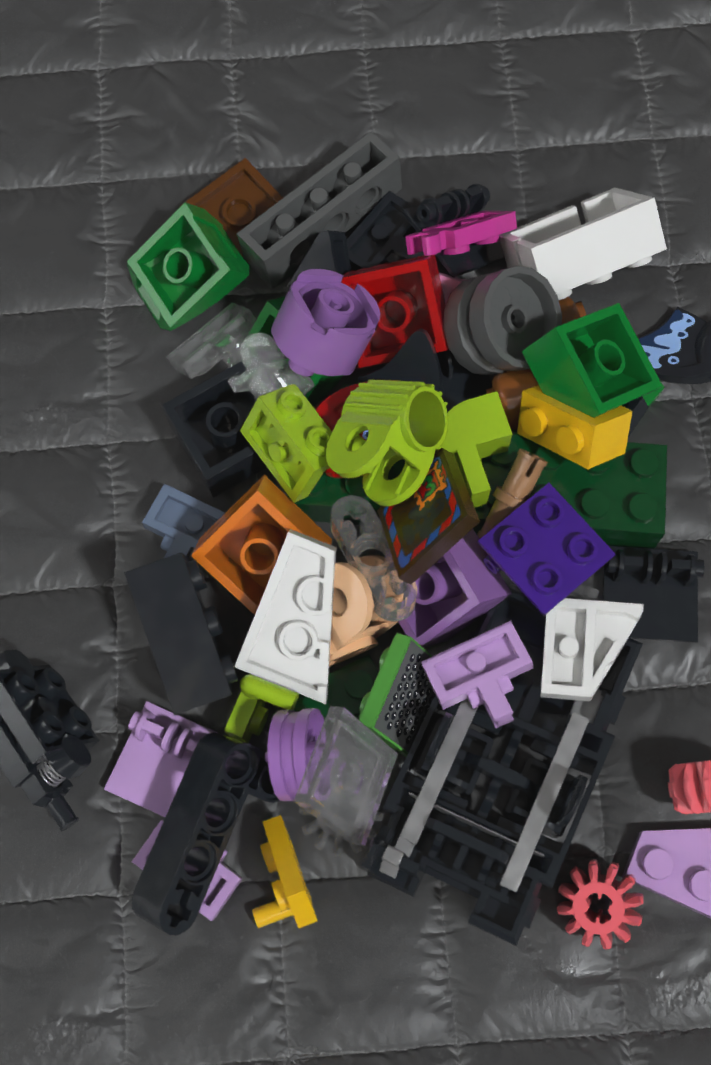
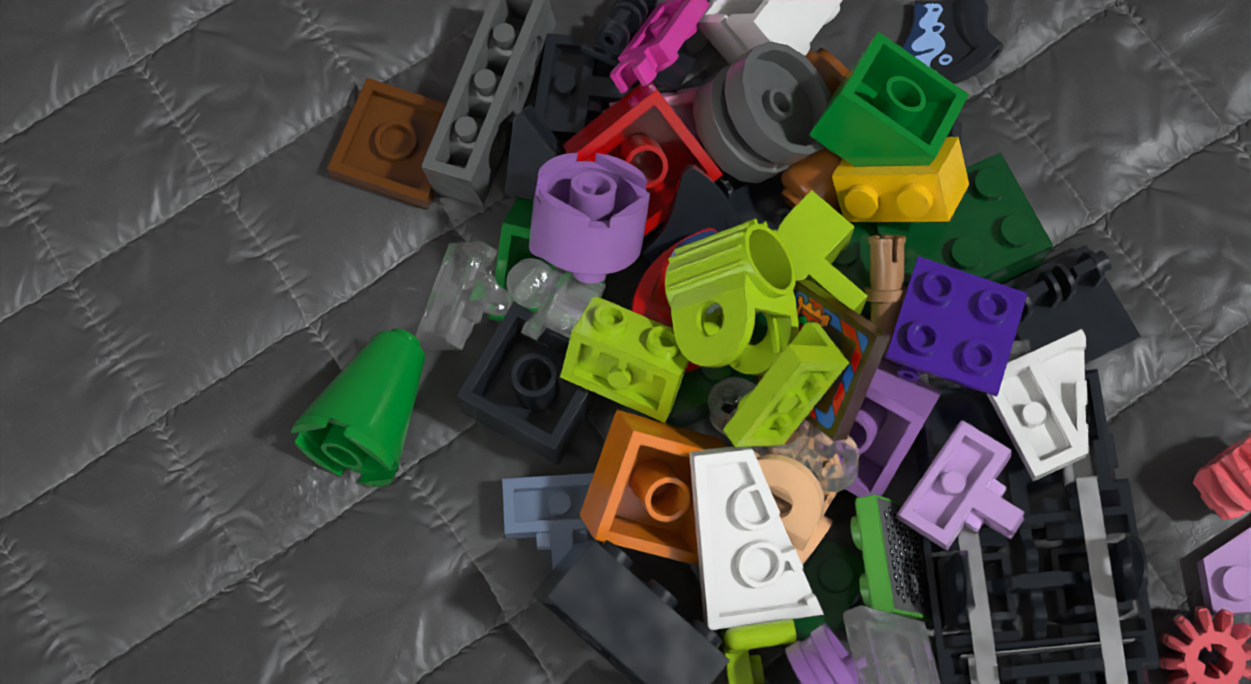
camera: 30 degrees left, 0 degrees up
(101, 383) = (365, 410): none -> green cone
(186, 267) = (380, 234): green slope -> none
(382, 521) = (788, 390): none -> lime bracket

